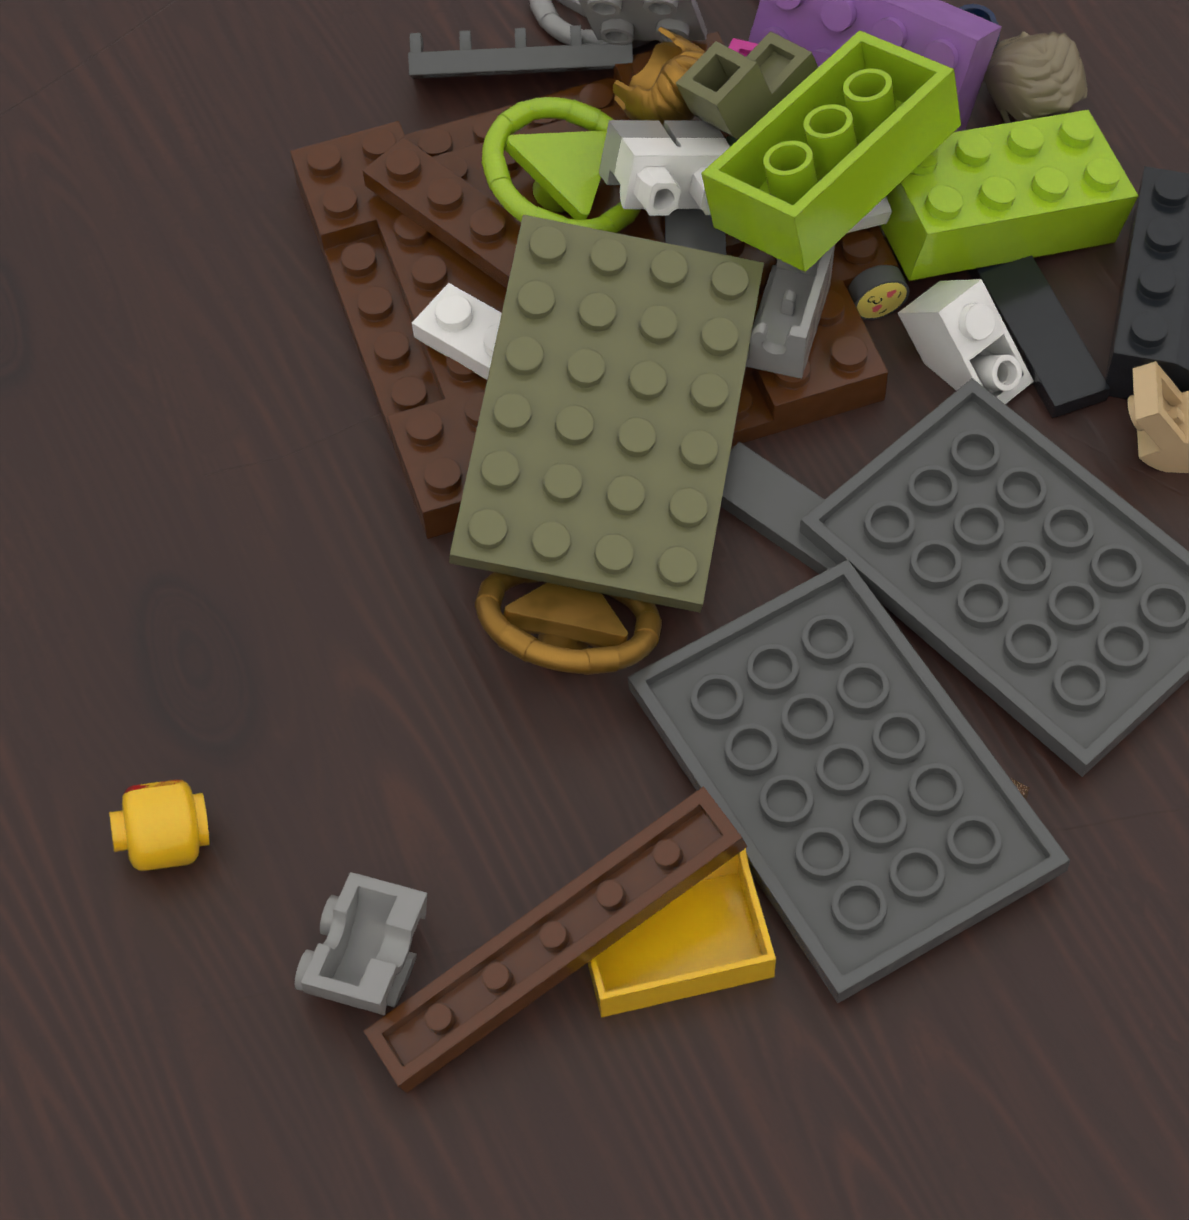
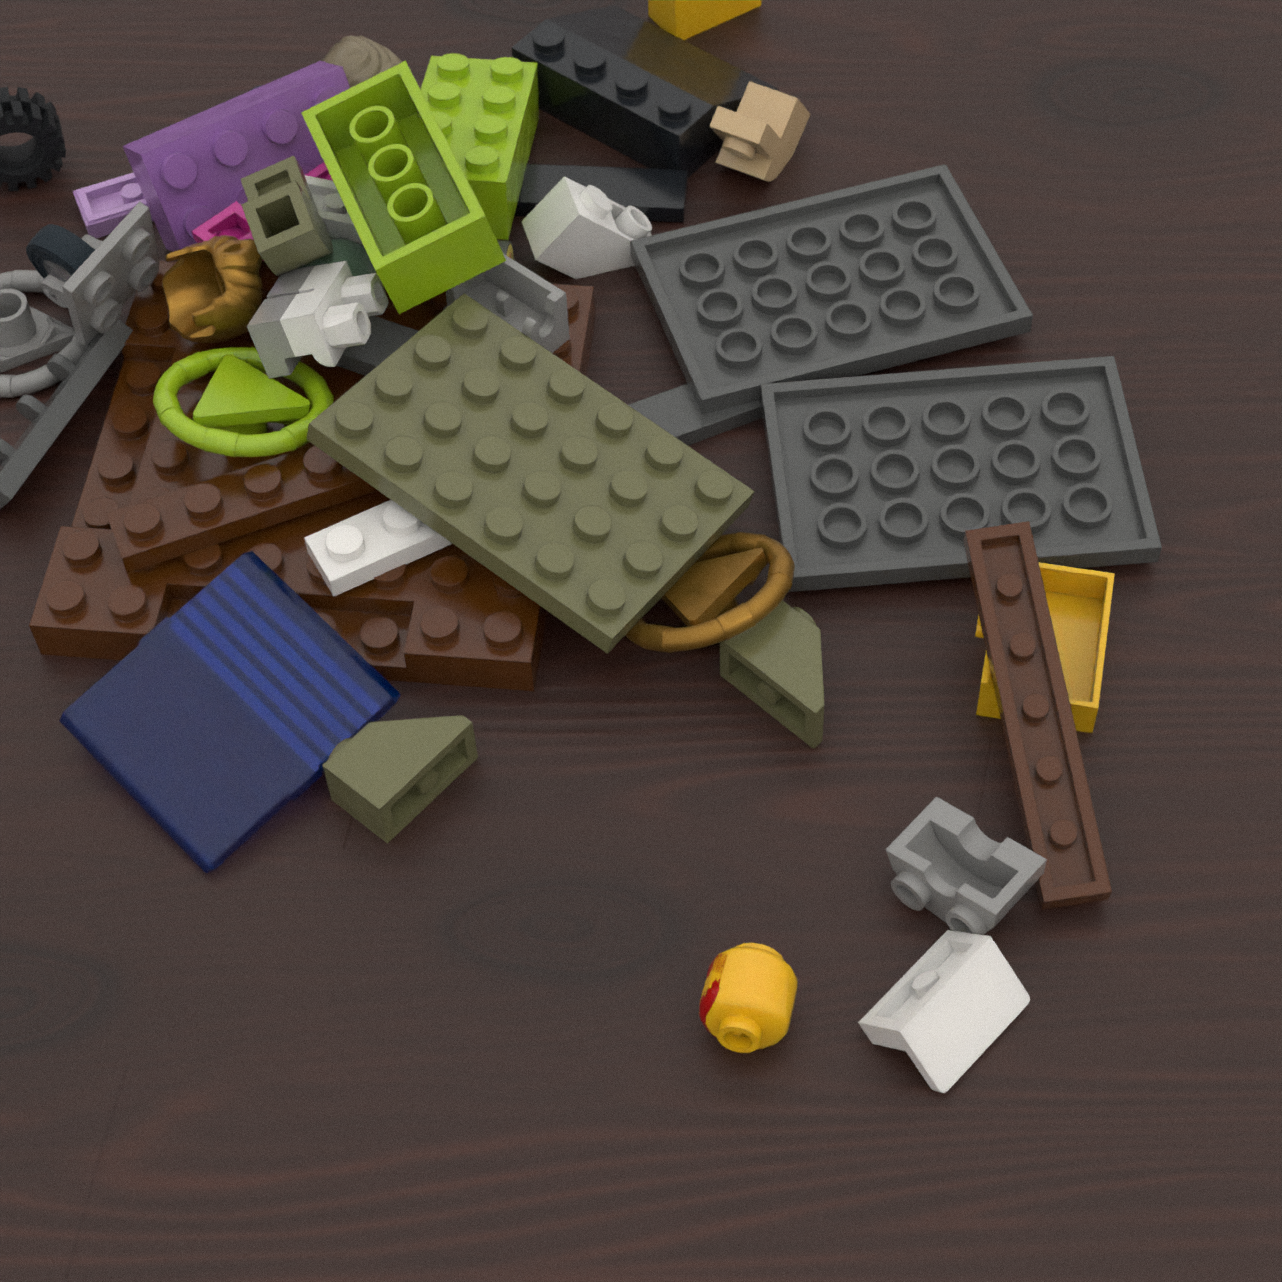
camera: 65 degrees left, 5 degrees down
(221, 993) = (948, 1007): none -> white panel
(275, 470) = (398, 769): none -> olive slope
(279, 324) = (228, 710): none -> clear blue piece
(525, 720) = (781, 669): none -> olive slope

